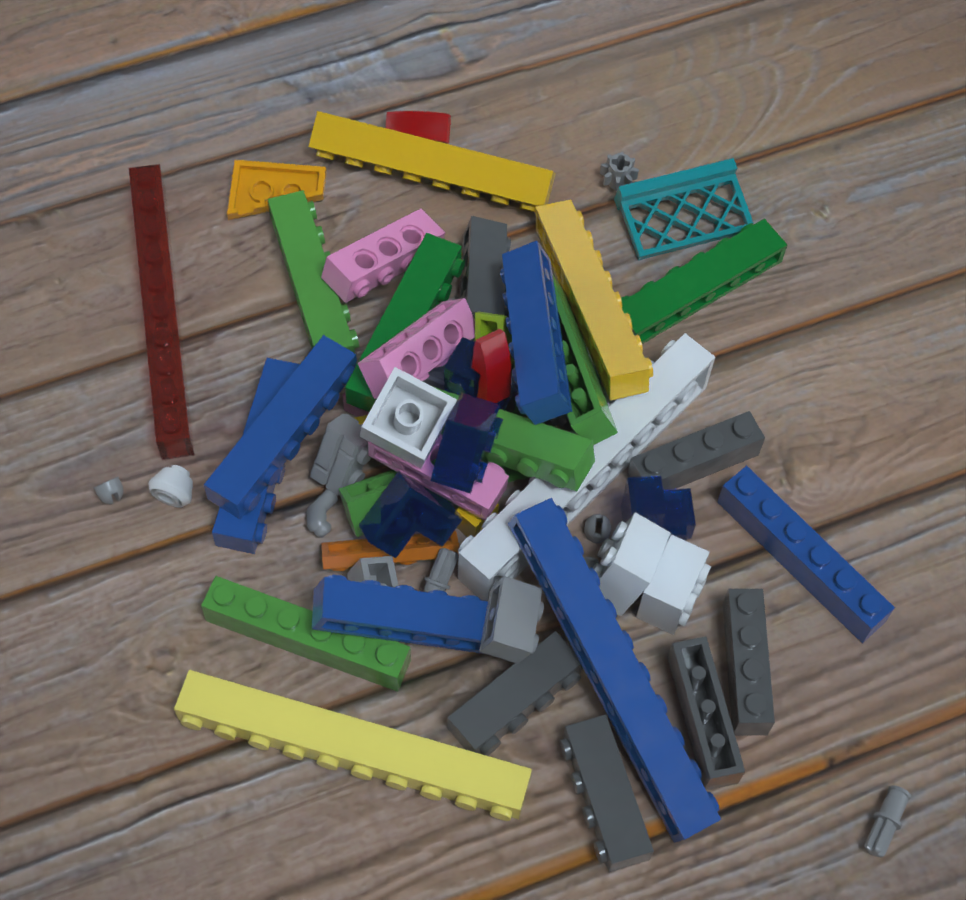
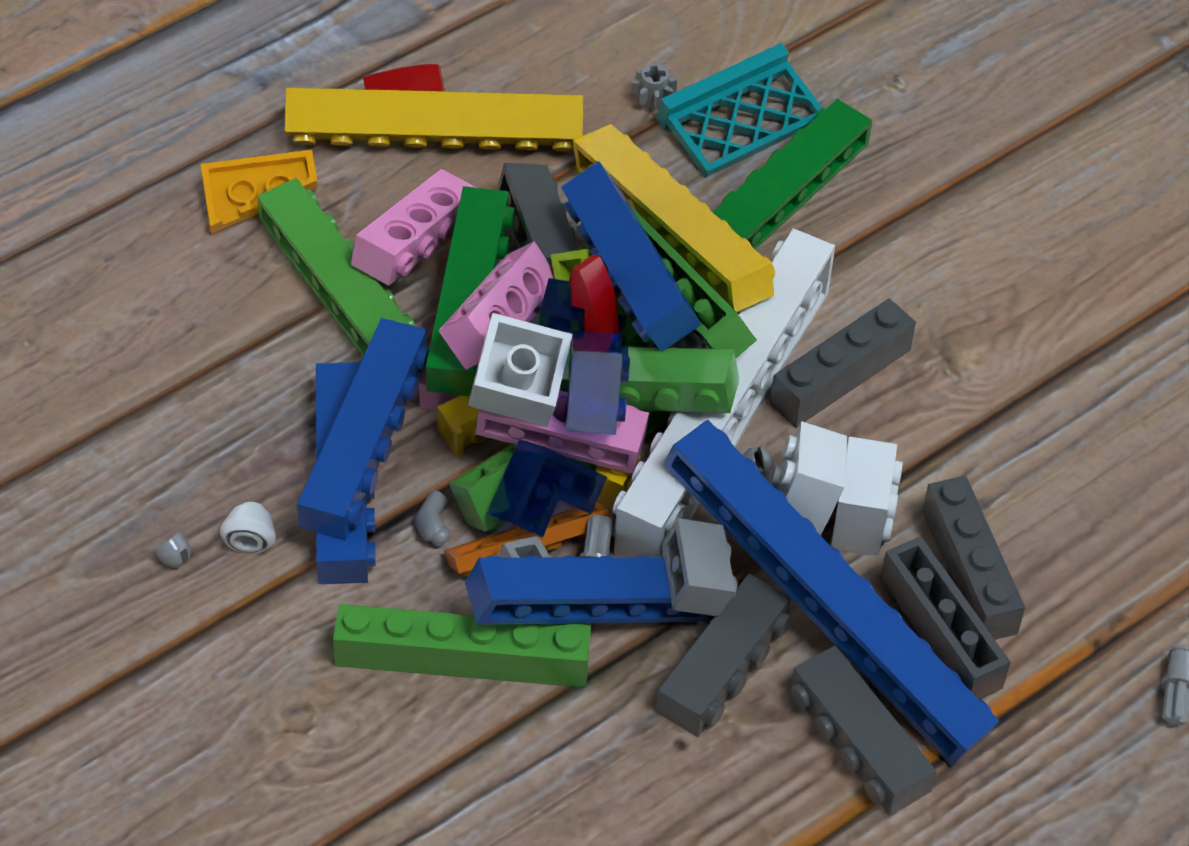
camera: 15 degrees left, 10 degrees down
(161, 314) = (170, 347): clear red brick -> none
(341, 454) = (442, 444): light grey brick -> none
(353, 745) = (555, 749): light yellow brick -> none
(666, 508) = (809, 404): clear blue brick -> none
(805, 554) = (998, 435): blue brick -> none

